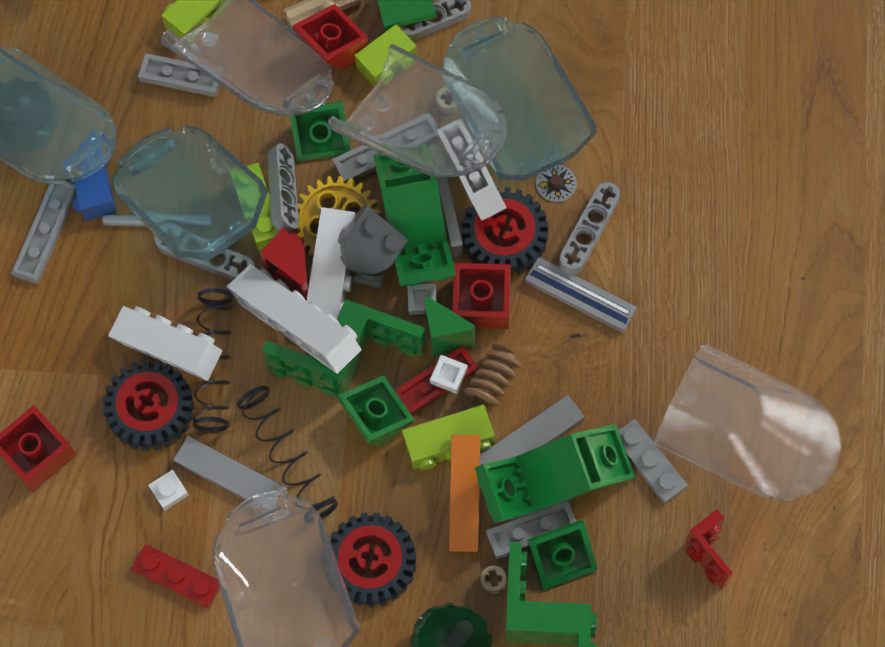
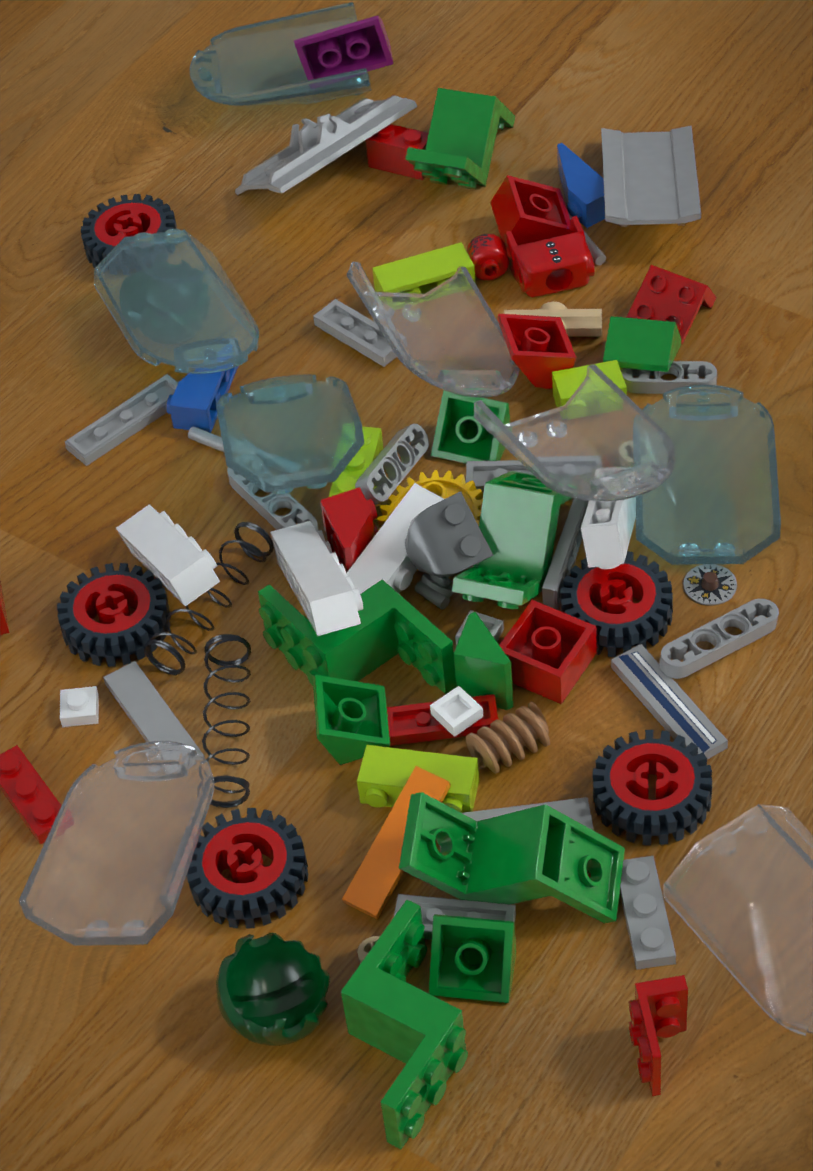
camera: 30 degrees right, 20 degrees down
(593, 383) = (623, 787): none -> wheel

